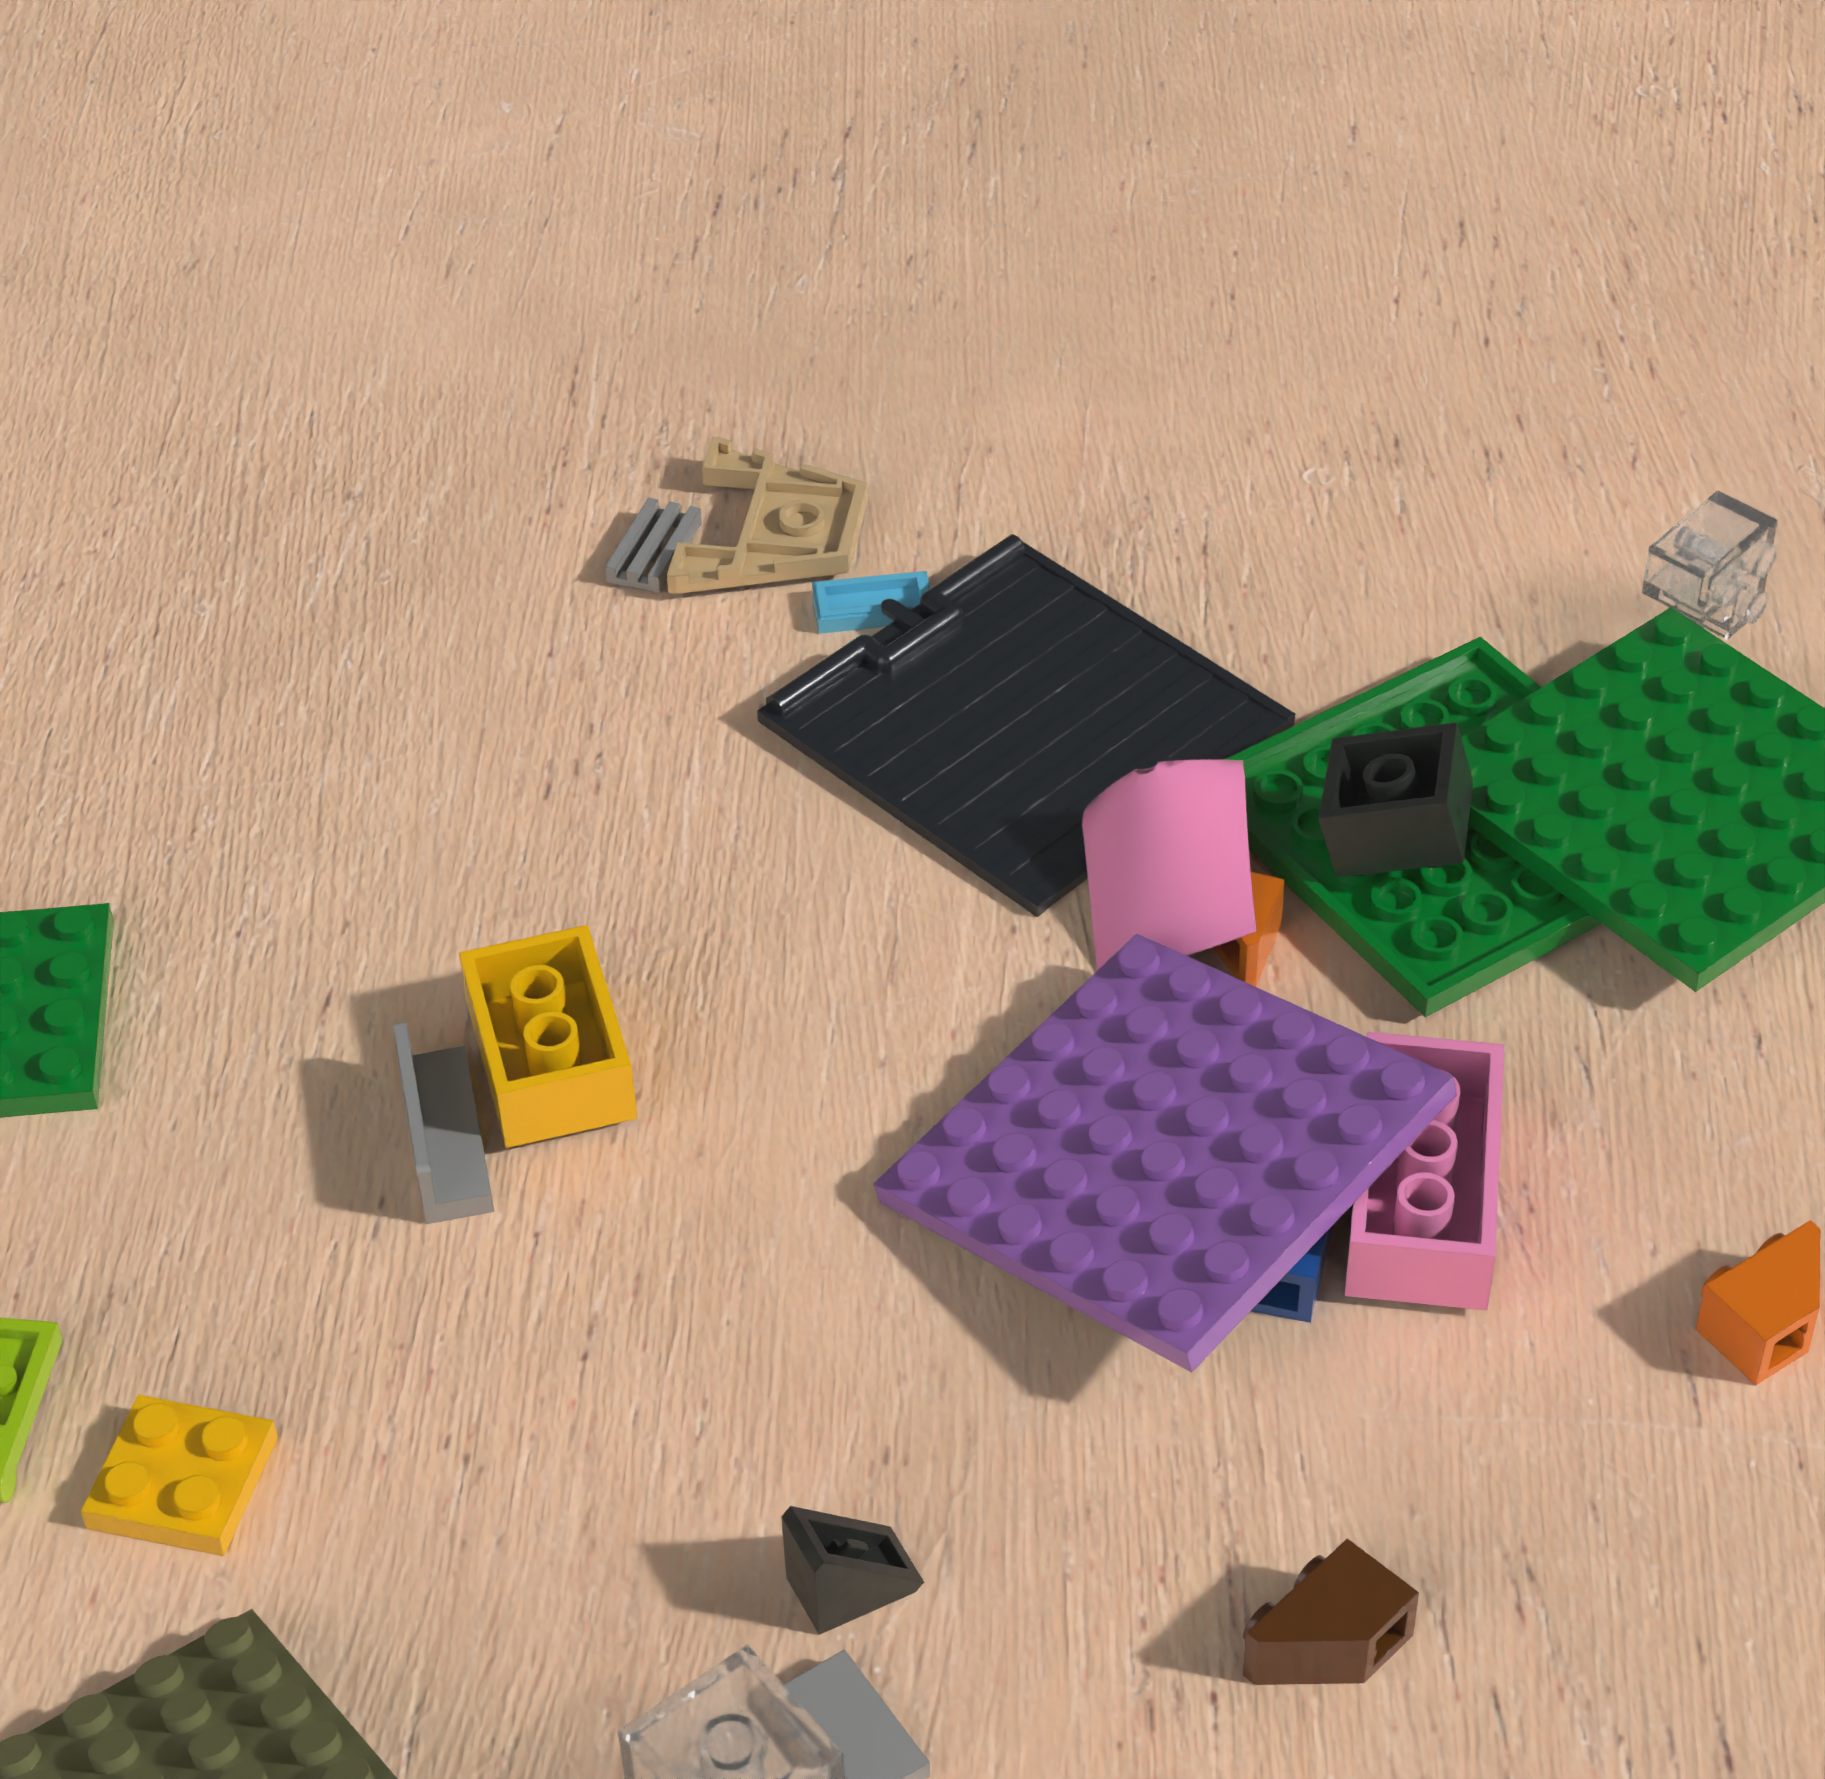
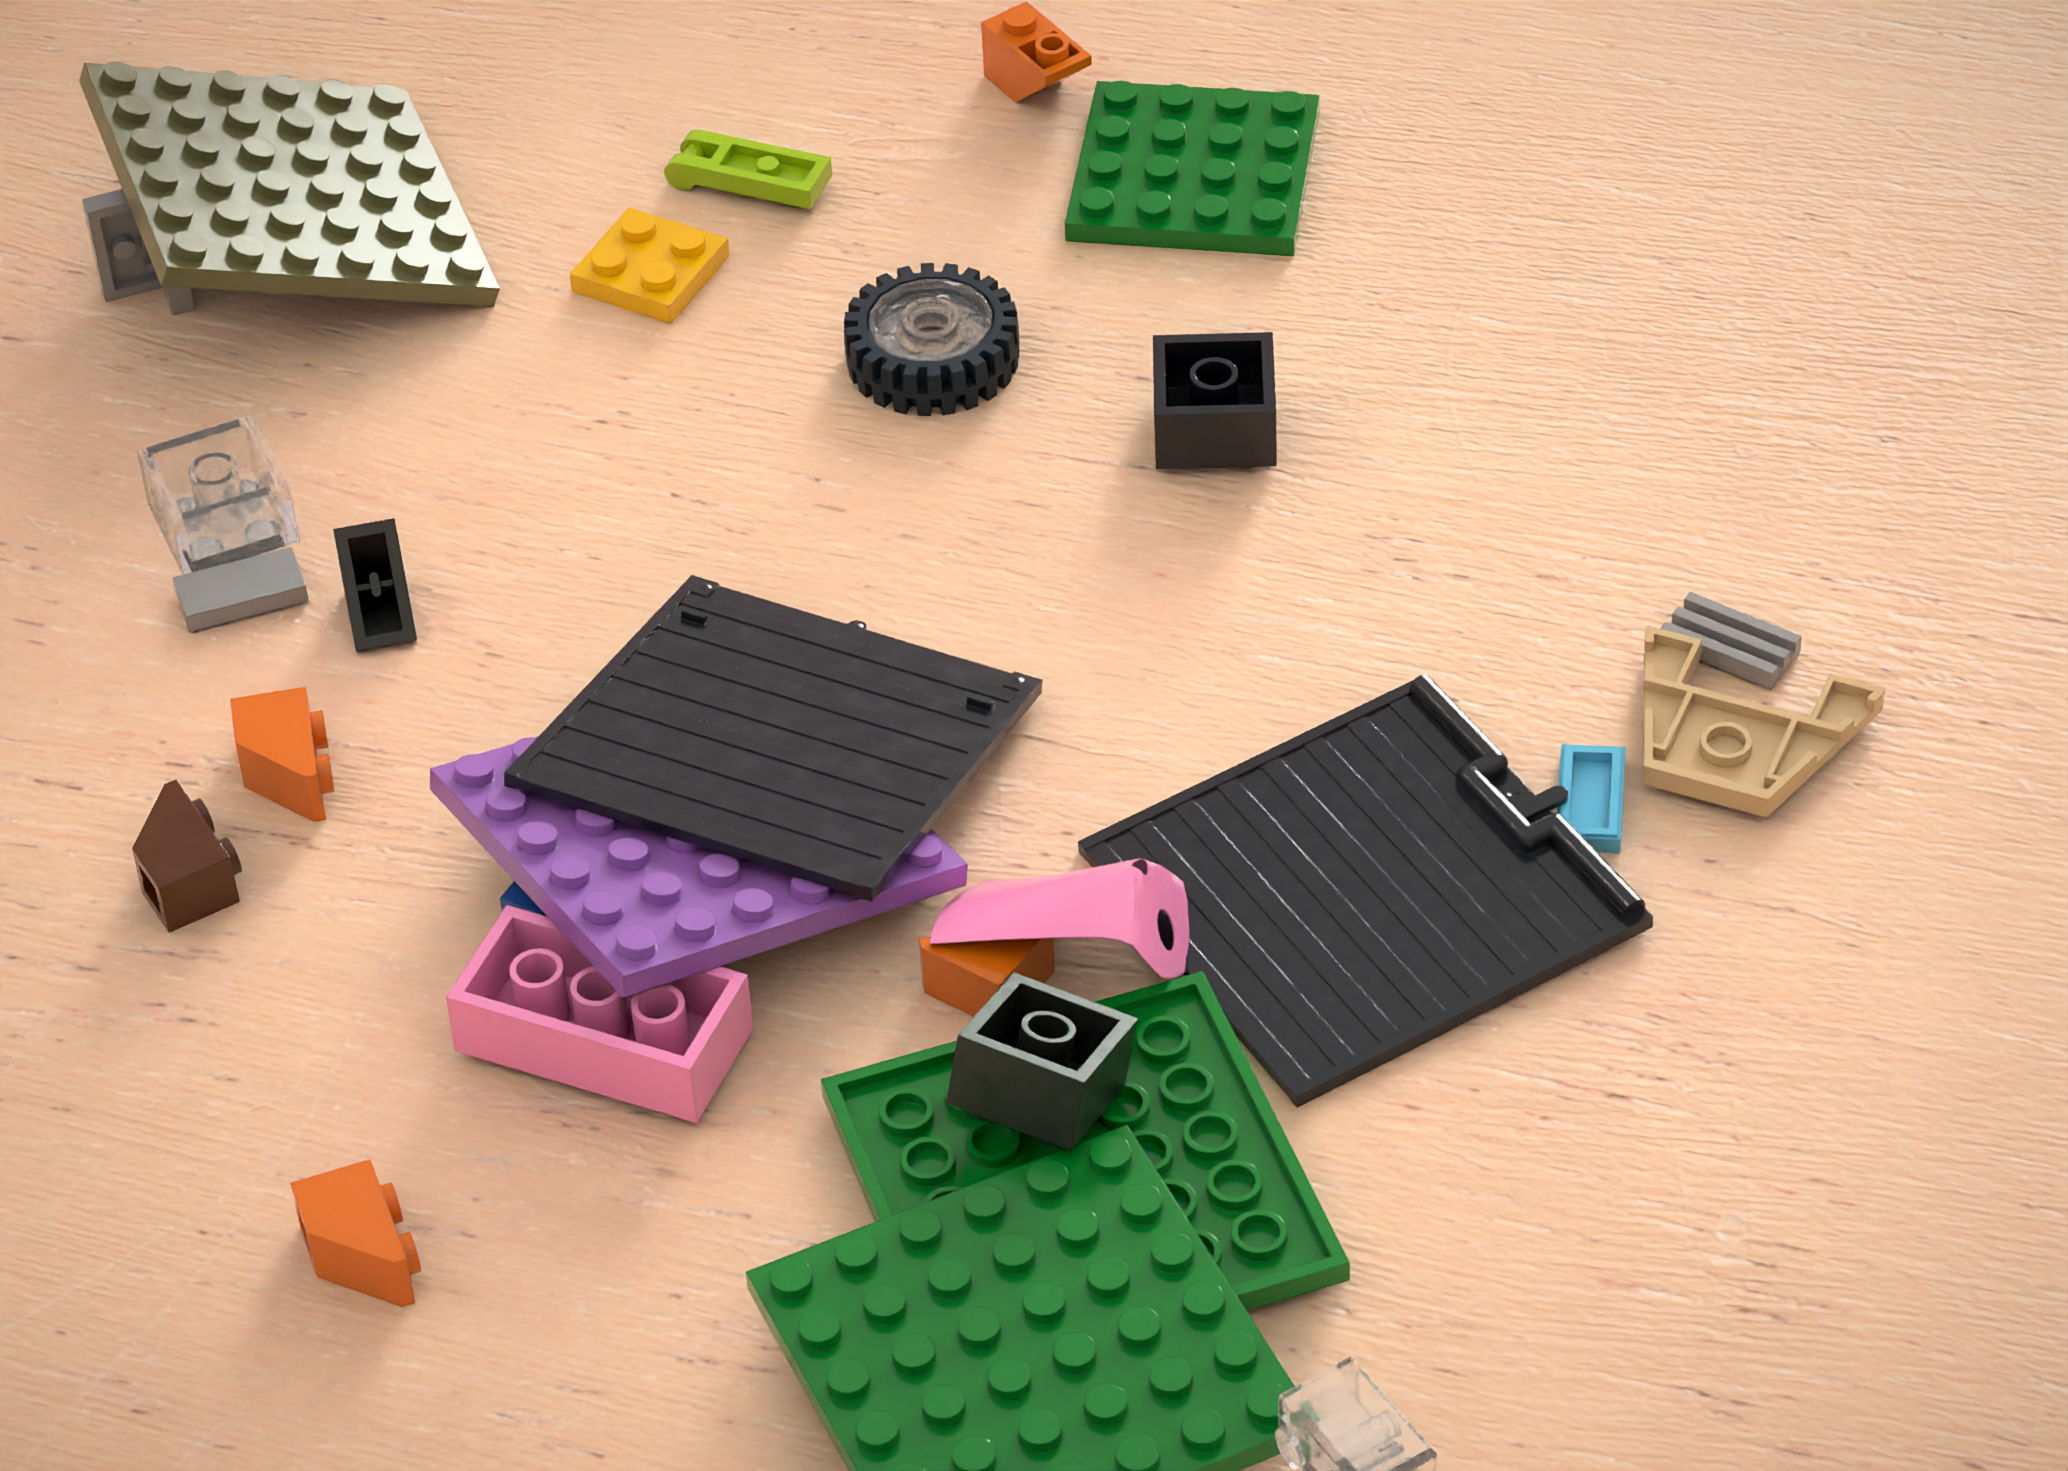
camera: 105 degrees right, 0 degrees up
(311, 1160) = (931, 339): none -> black wheel
(408, 893) = (1214, 400): none -> black brick
(444, 1131) = (943, 409): light grey panel -> none
(548, 1036) = (1001, 470): yellow brick -> none
(1011, 1114) = (776, 737): none -> black door
(1129, 1577) = (279, 748): none -> orange slope

